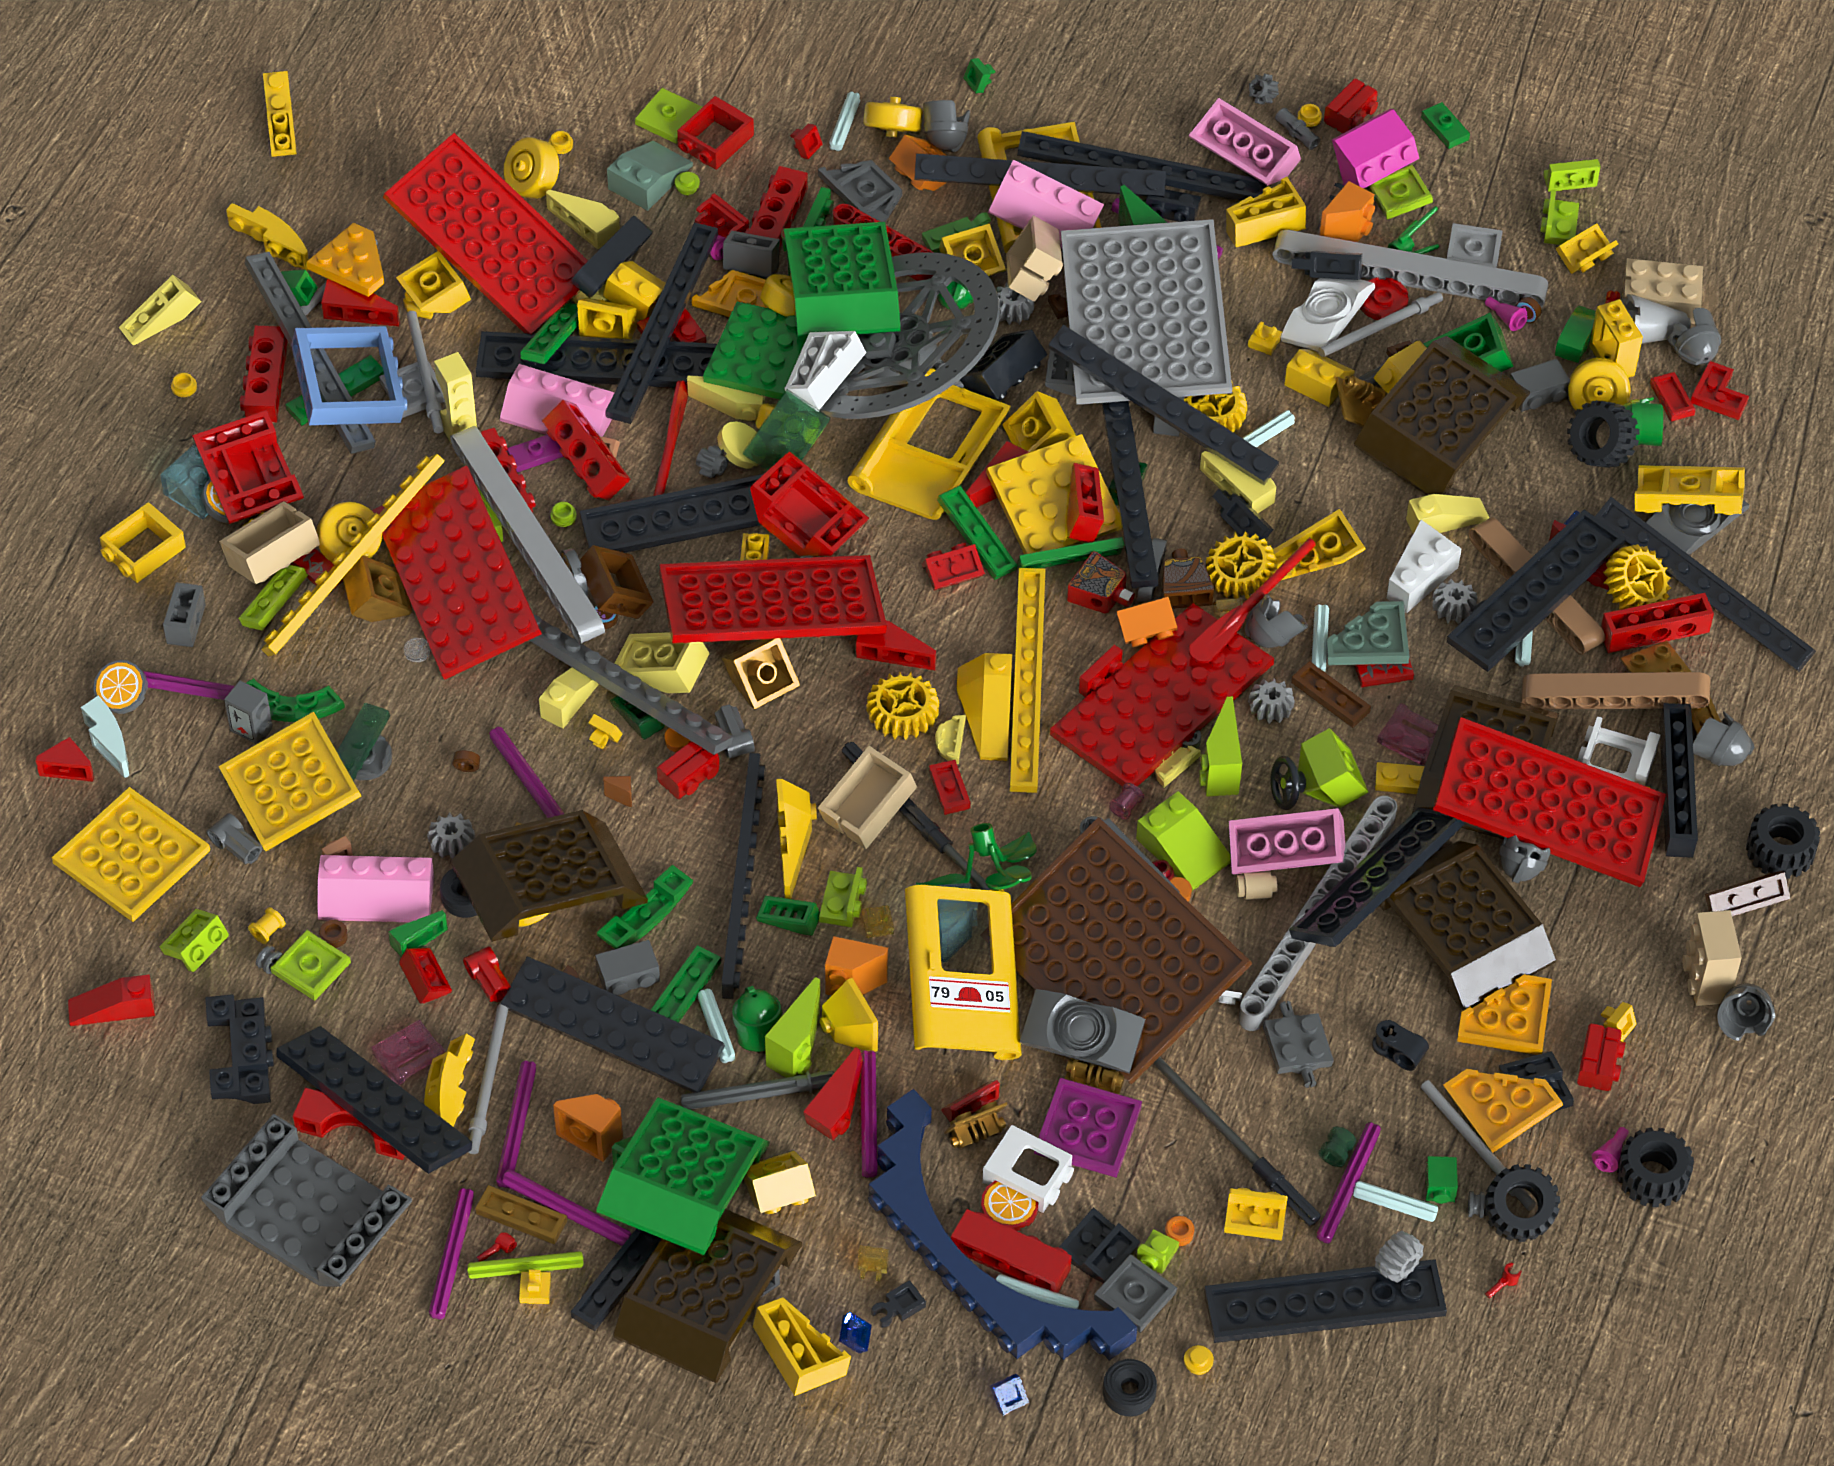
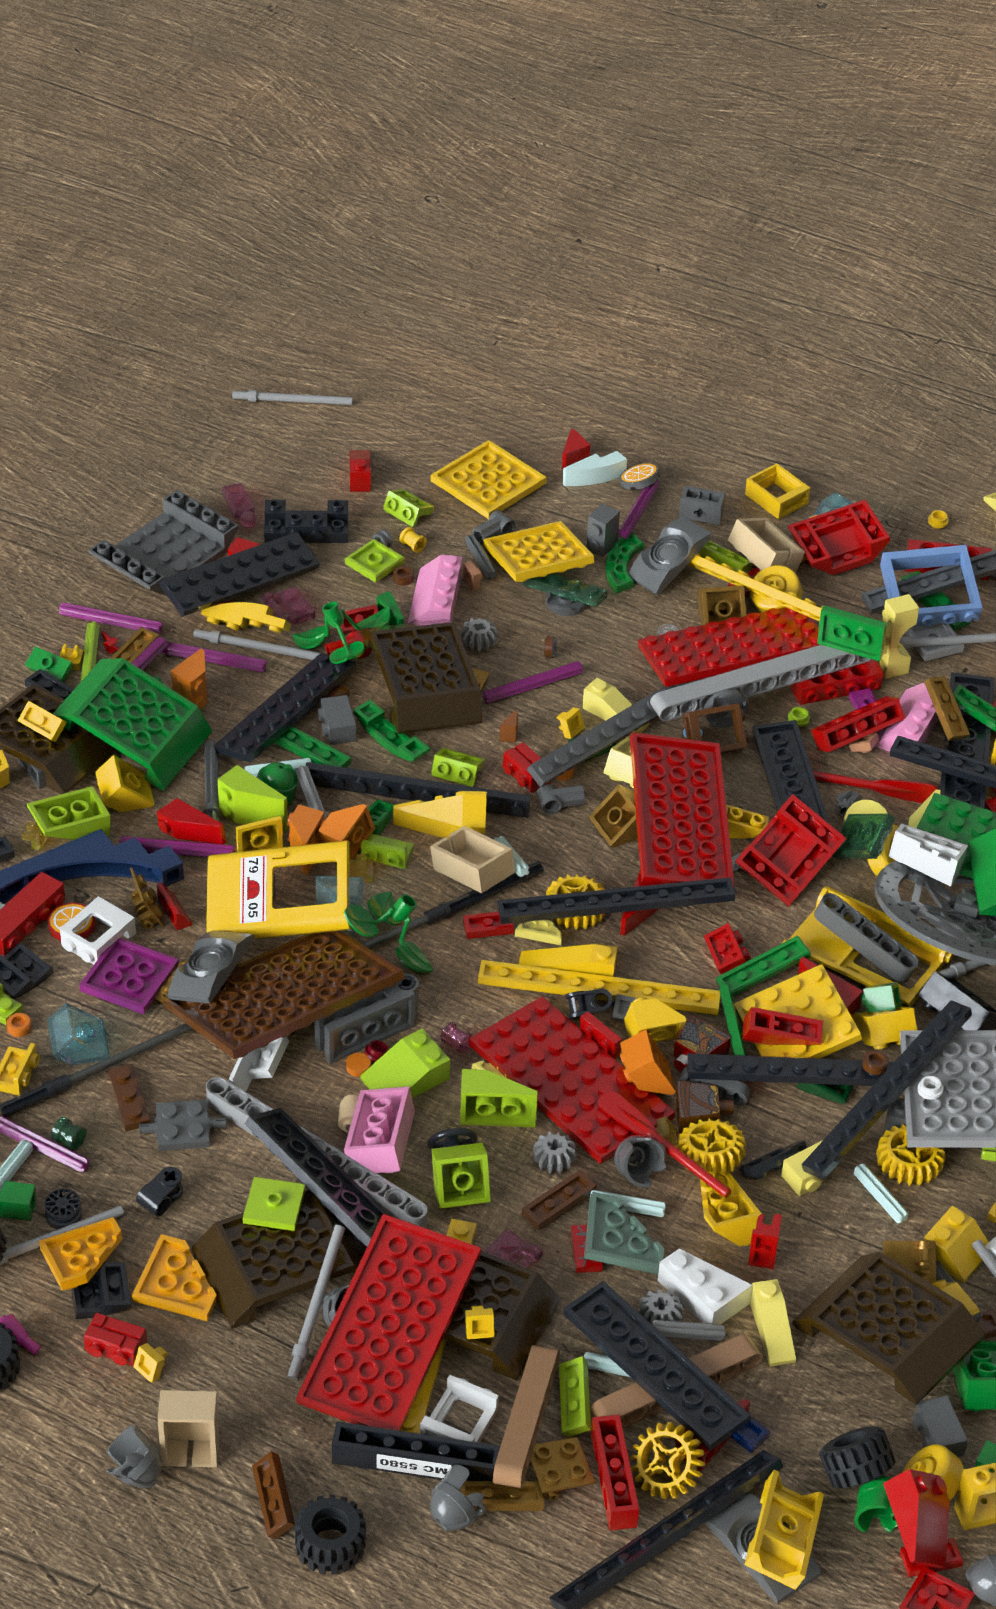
camera: 95 degrees right, 10 degrees down
(202, 1133) = (240, 504): none -> clear pink plate
(289, 851) = (480, 556): none -> dark grey axle
(296, 638) = (669, 554): none -> dark grey slope
(445, 947) = (334, 616): none -> green plant
(481, 428) = (851, 633): none -> green plate
(556, 1306) = (50, 663): none -> green plate
(563, 362) = (946, 708): none -> pearl gold plate
(691, 838) = (456, 766): none -> lime bracket
(715, 1259) = (42, 721): none -> yellow plate
(772, 976) = (309, 789): none -> light grey axle
(834, 774) = (521, 867): none -> light aqua axle
(843, 917) = (348, 824): none -> orange slope
(851, 1217) = (71, 814): none -> lime slope
(919, 656) = (615, 900): none -> black plate
(929, 438) = (866, 937): none -> dark grey beam
(1011, 425) = (882, 997): none -> brick
(1057, 652) = (621, 1006): none -> dark grey plate
(1060, 678) = (587, 1002): none -> black piece
(1092, 620) = (655, 1017): none -> yellow slope
(1118, 422) = (875, 1062): none -> reddish brown tile
(1165, 359) = (930, 1087): none -> white plate
(1196, 1163) = (77, 1036): none -> clear light blue slope
(1266, 1102) = (128, 1097): none -> reddish brown plate
(1360, 510) = (764, 1243): none -> red hinge
(1419, 919) = (274, 1203): none -> lime plate
(1440, 1135) = (56, 1202): none -> black wheel
(1476, 575) = (690, 1330): none -> light grey axle
(1533, 724) = (479, 1322): none -> yellow tile
(1574, 661) = (574, 1397): none -> lime plate
(1575, 892) = (301, 1350): none -> light grey bar
(1651, 382) = (921, 1515): none -> red slope

